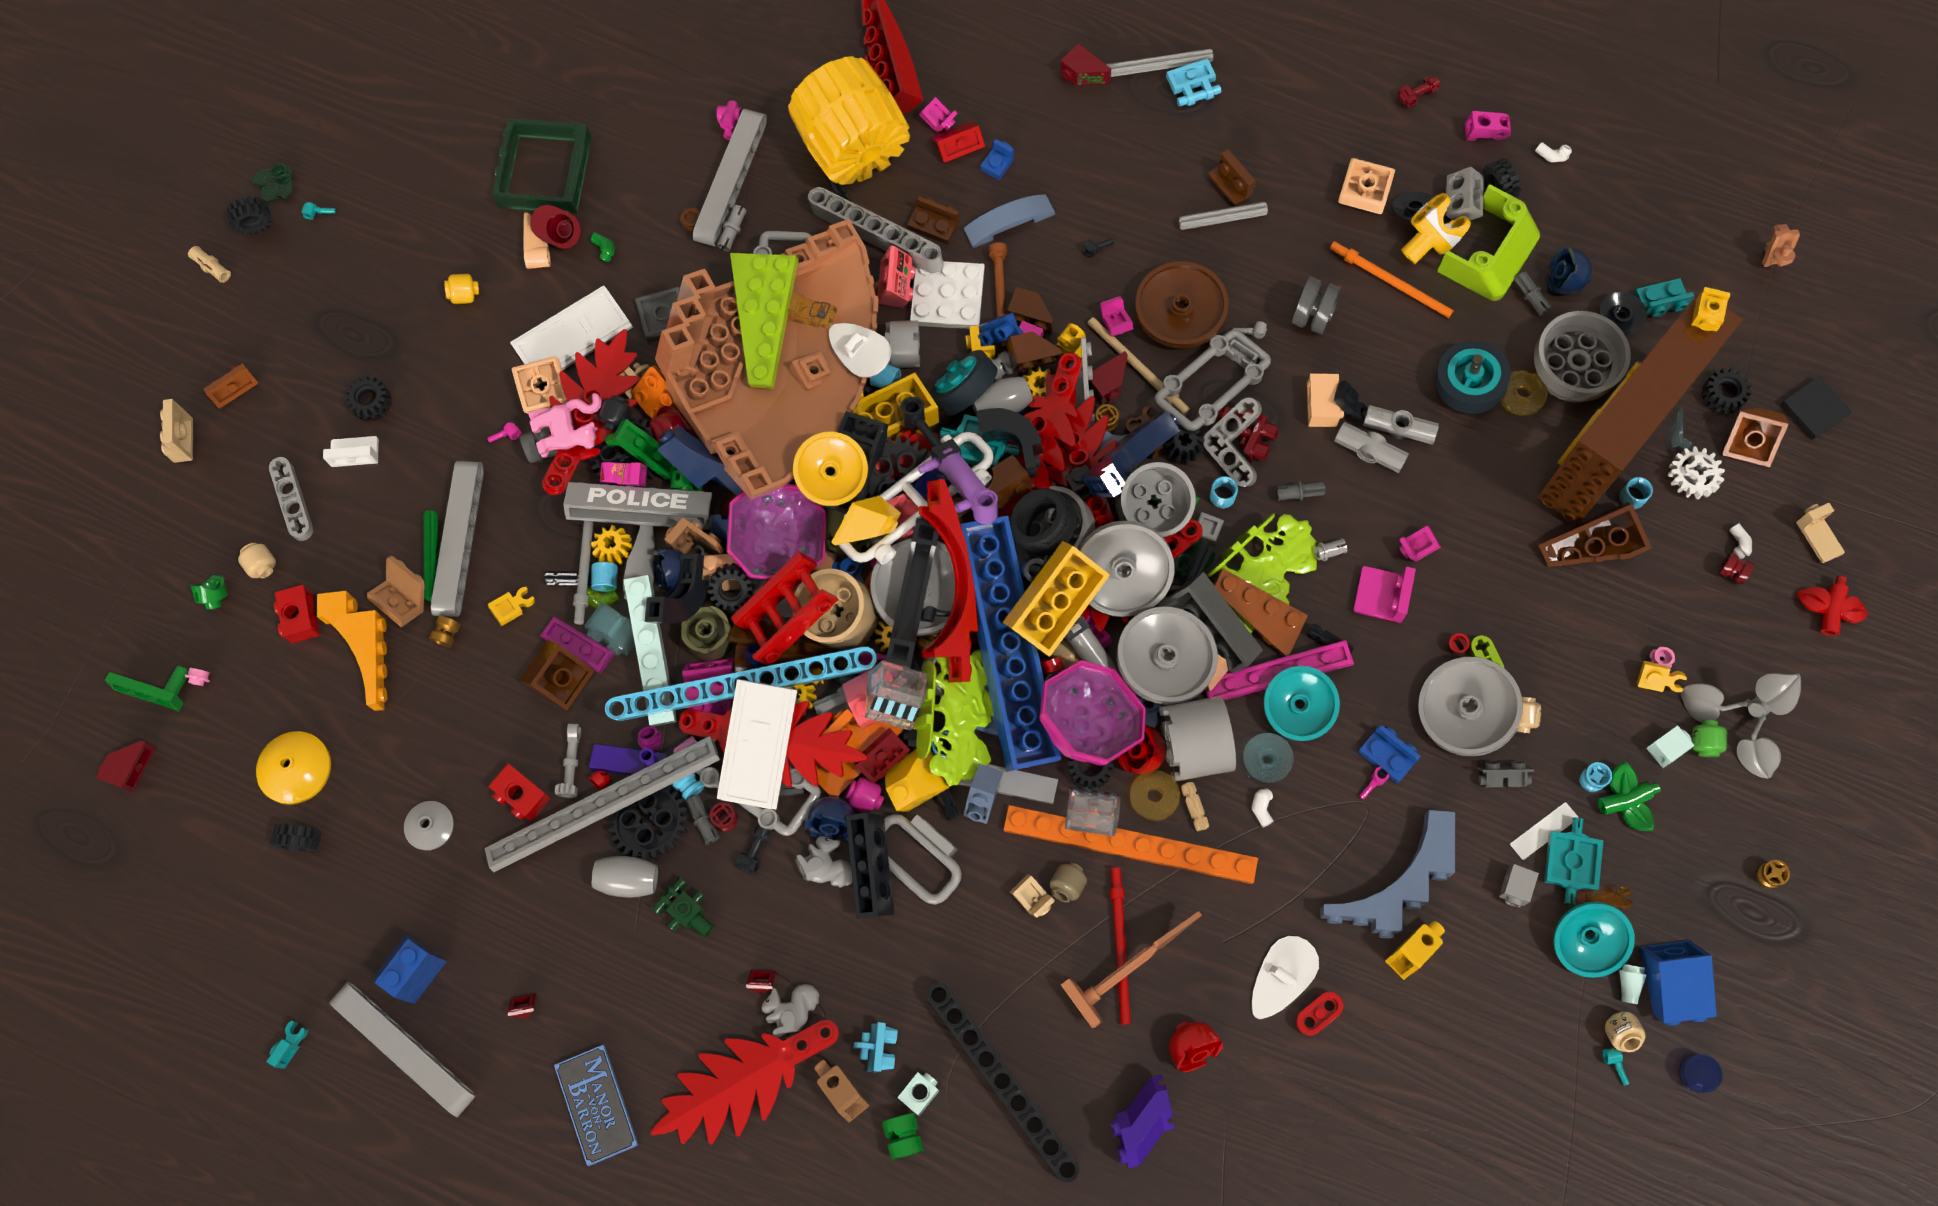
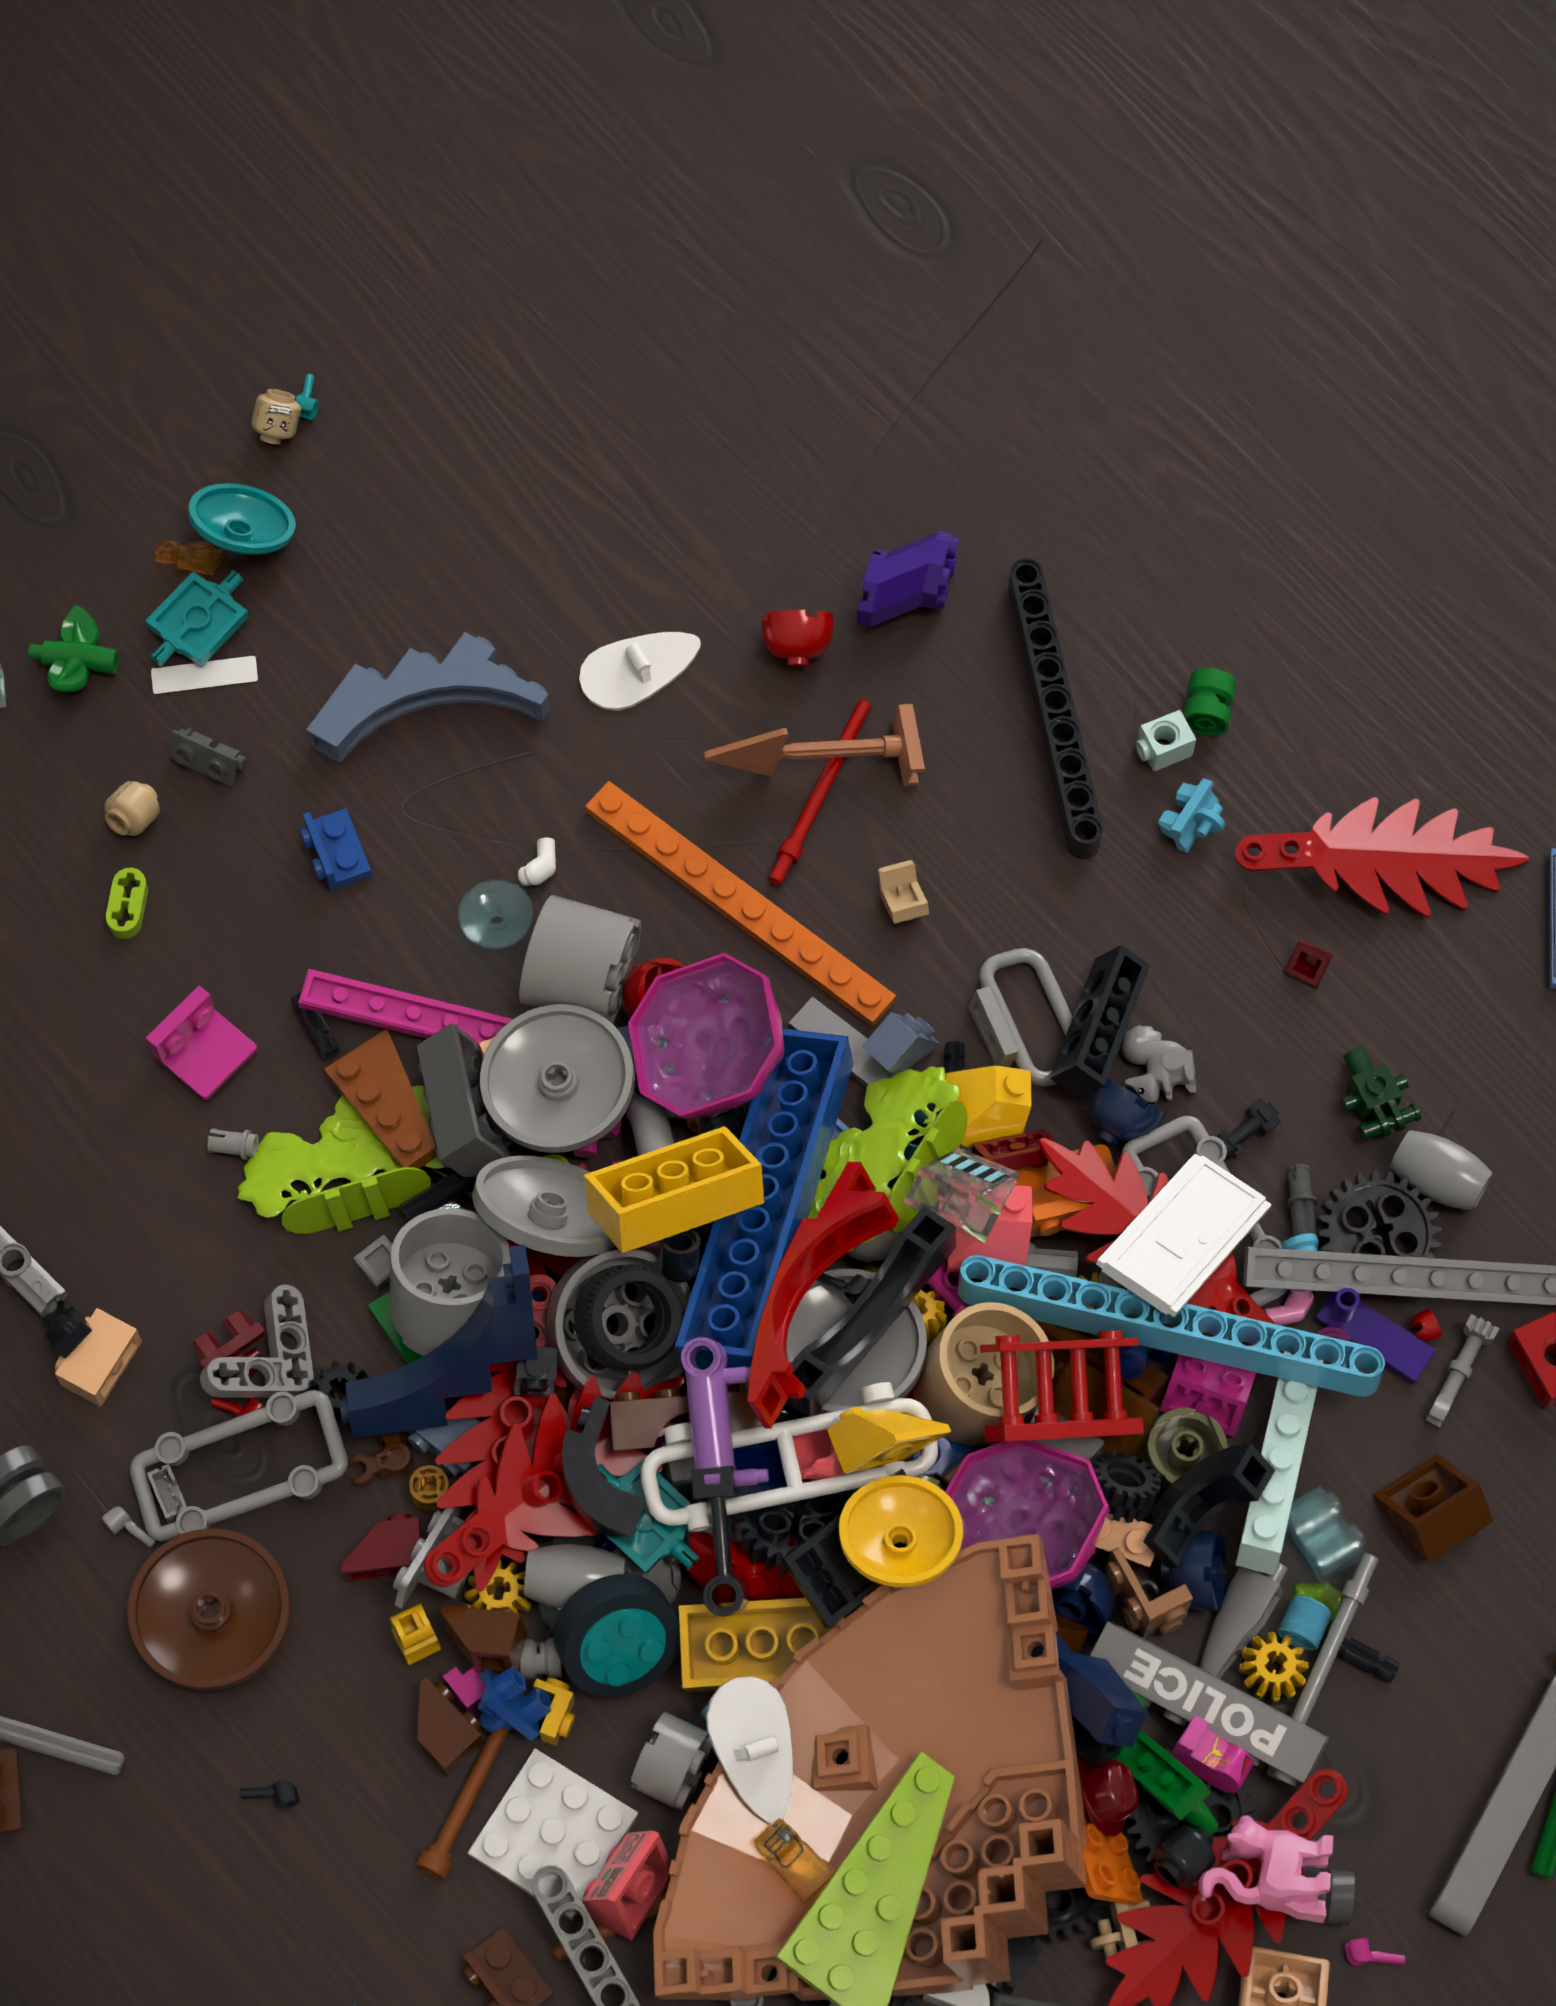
camera: 160 degrees left, 5 degrees down
(508, 607) = (1471, 1649): yellow plate -> none
(578, 644) = (1398, 1560): magenta tile -> none
(727, 820) = (1278, 1177): dark red wheel -> none
(792, 1015) = (1288, 902): light grey animal -> none
(845, 1095) = (1264, 782): medium nougat torso -> none
(864, 795) = (1064, 1121): dark pink head -> none
(1006, 217) = (383, 1915): sand blue slope -> none
(1068, 882) = (847, 889): dark tan head -> none
(1092, 811) = (769, 948): clear slope -> none
(1115, 316) = (319, 1646): dark pink bracket -> none
(1137, 365) = (333, 1568): tan bar -> none
(1154, 810) = (673, 925): clear yellow tile -> none
(1195, 806) = (629, 894): tan axle -> none
(1224, 482) = (324, 1277): medium azure piece -> none
(1300, 490) = (219, 1244): dark grey axle -> none
(1318, 1013) = (620, 601): red plate -> none
(1319, 700) = (411, 936): teal dish -> none
(1371, 447) = (78, 1254): light grey piece -> none
(1375, 780) = (377, 826): dark pink hand -> none
(1416, 949) = (459, 607): yellow torso -> none
(1419, 544) = (110, 1086): dark pink bracket -> none
(1464, 641) = (158, 934): red hinge -> none
(1470, 706) = (195, 844): light grey dish -> none
(1518, 886) = (285, 622): light grey brick -> none
(1600, 774) = (93, 688): medium azure wheel -> none
(1632, 982) = (227, 464): light aqua cone -> none
(1679, 981) = (172, 439): blue slope -> none
(1700, 1073) = (219, 344): clear blue wheel -> none

